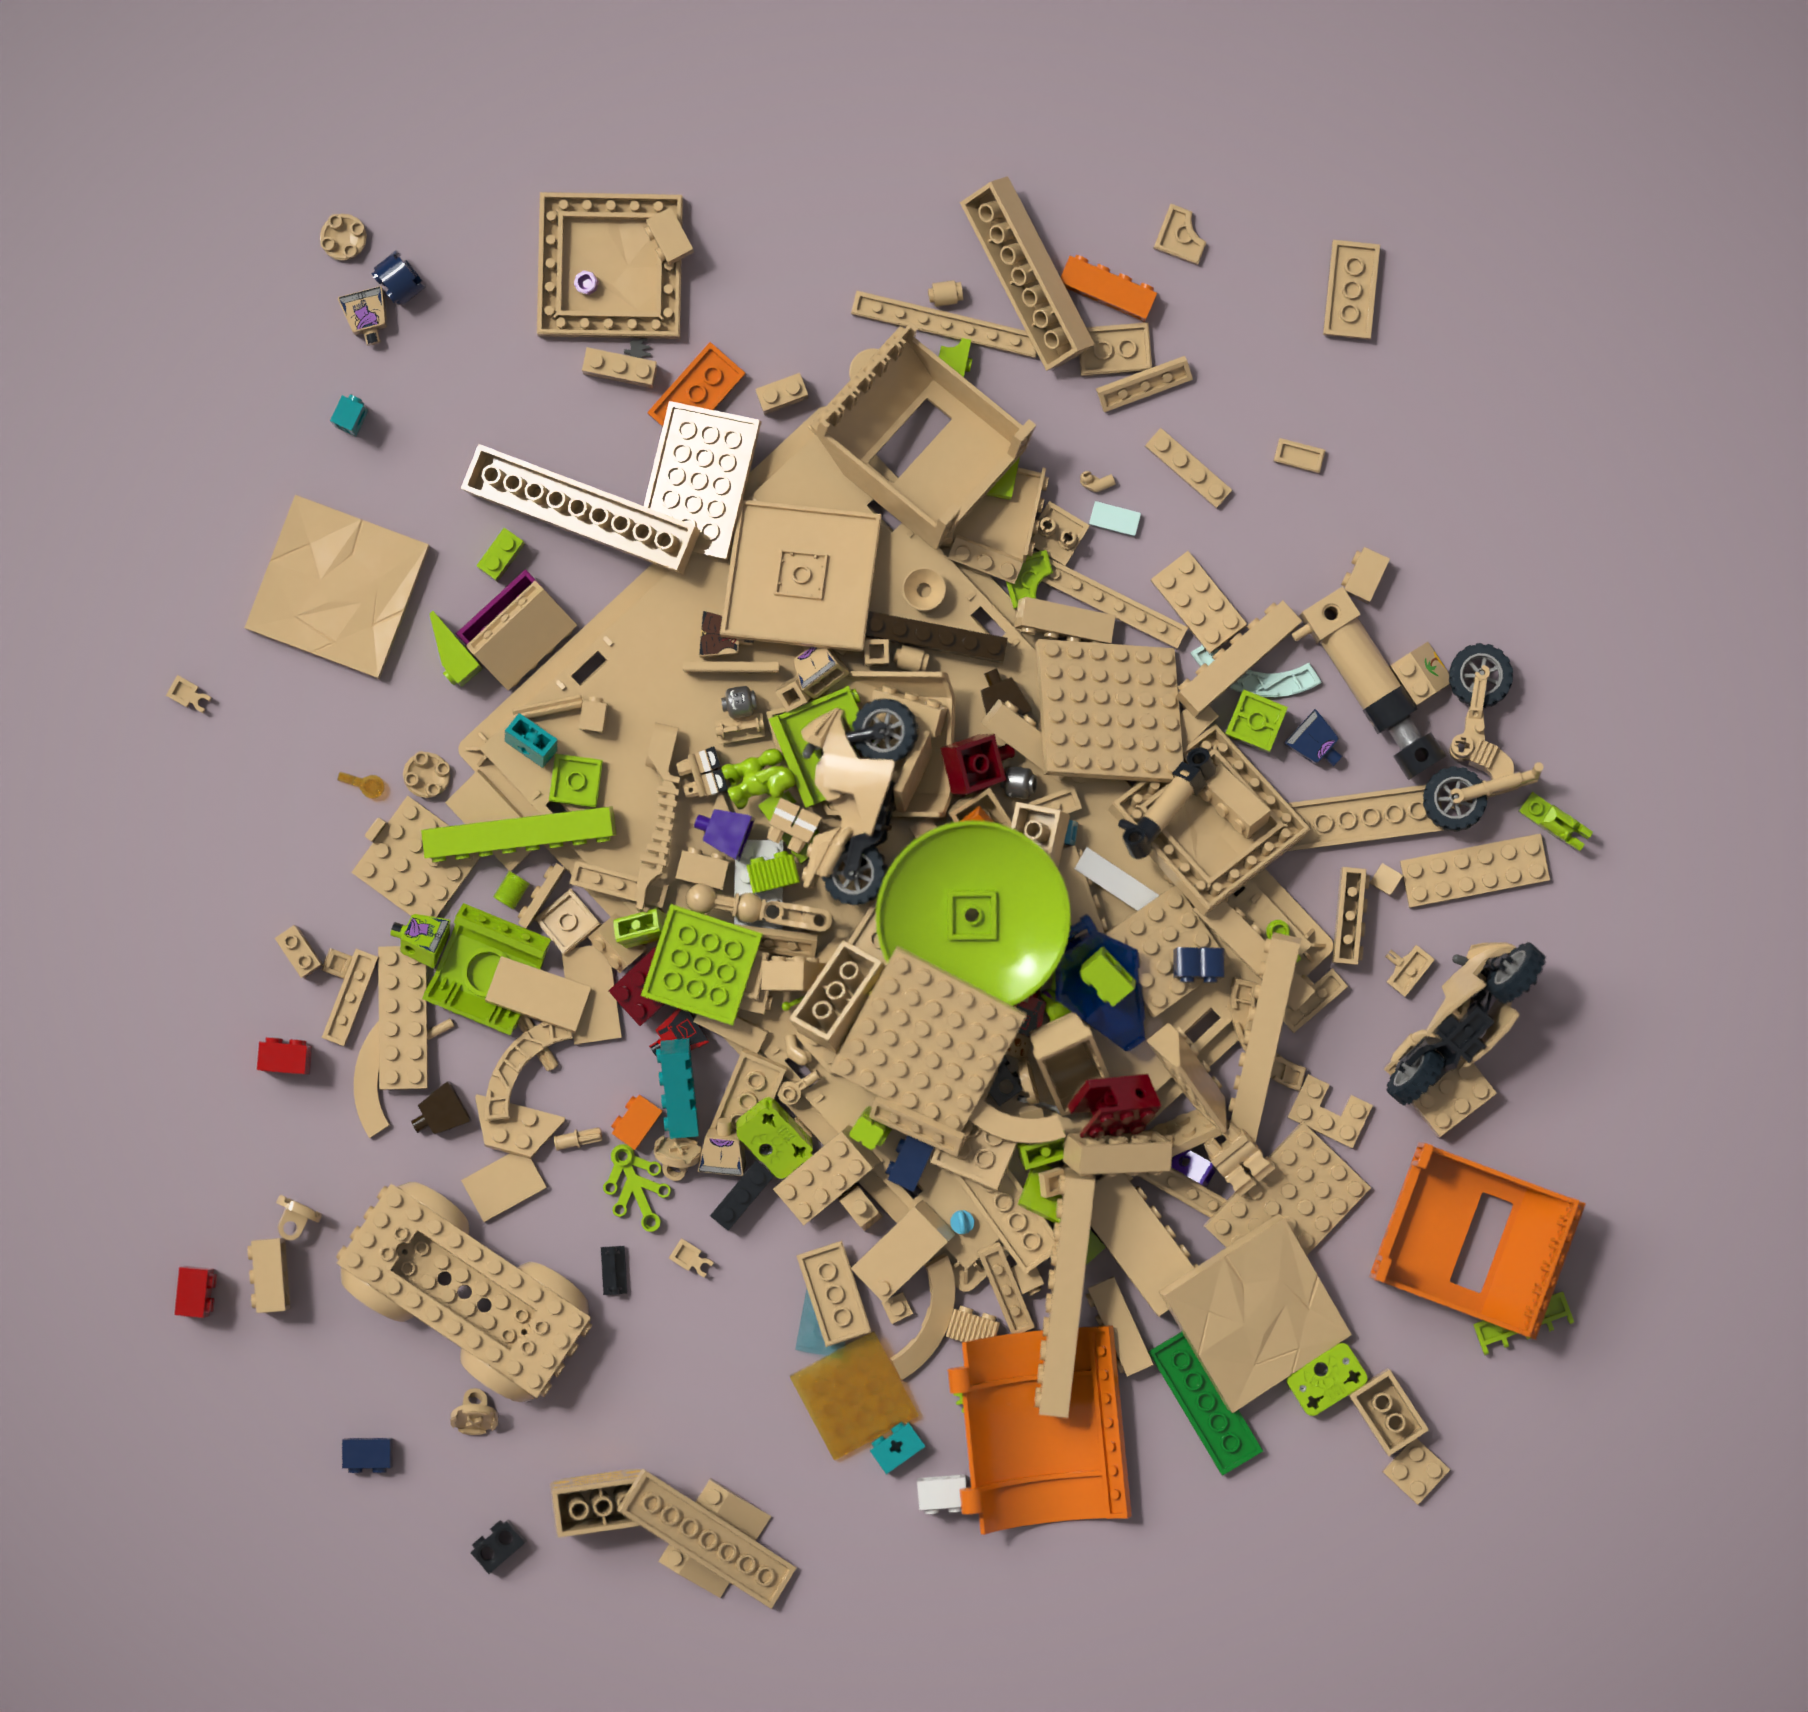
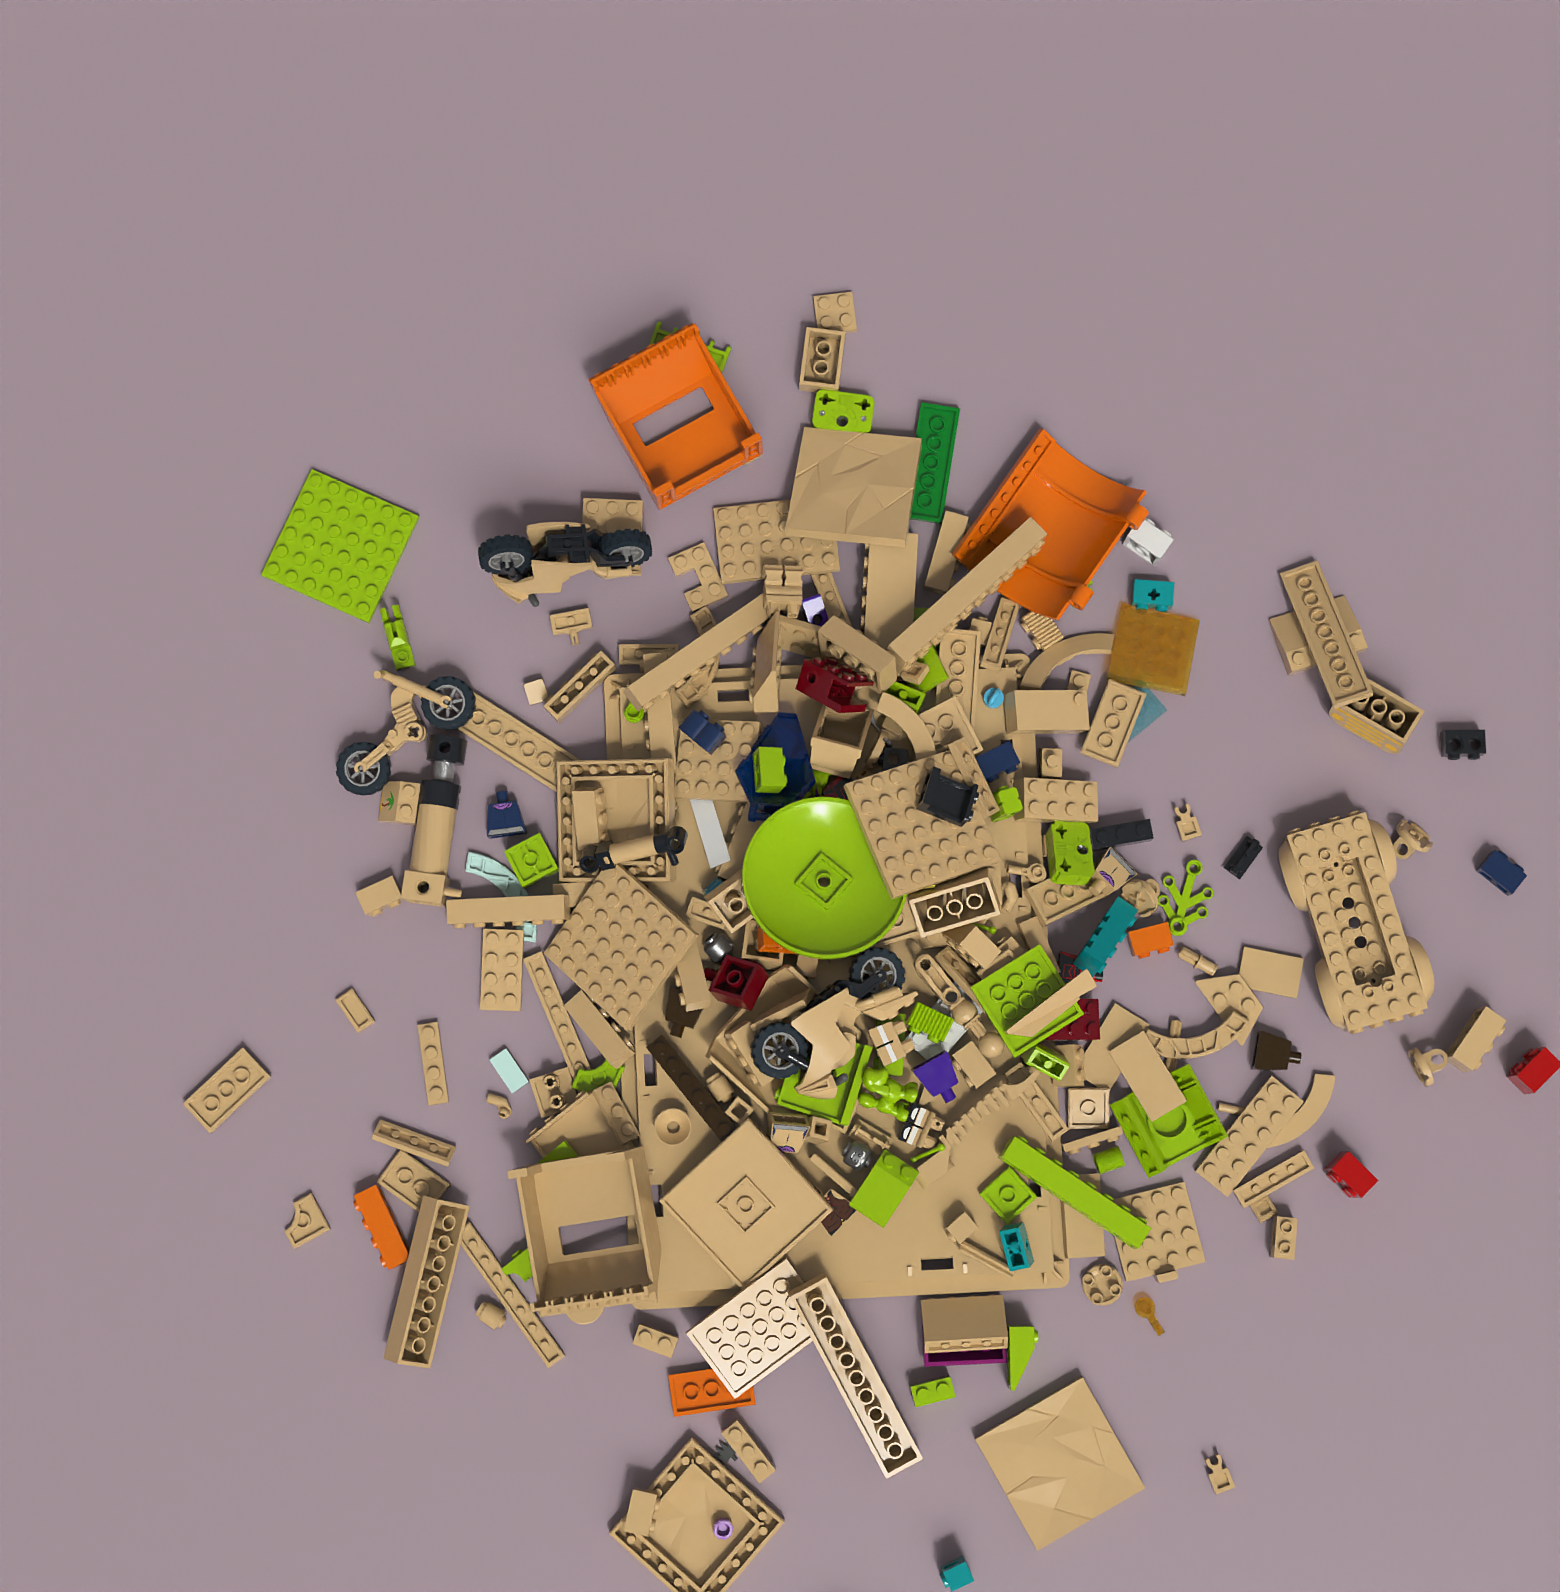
camera: 140 degrees left, 5 degrees down
(422, 938) = (1194, 1177): lime torso -> none
(670, 770) = (940, 1147): none -> lime hinge
(674, 977) = (1053, 1006): none -> tan wedge
(690, 691) = (884, 1188): none -> lime slope
(923, 1082) = (947, 798): none -> black panel
(1474, 870) = (475, 651): tan plate -> none
(1683, 862) = (340, 546): none -> lime plate

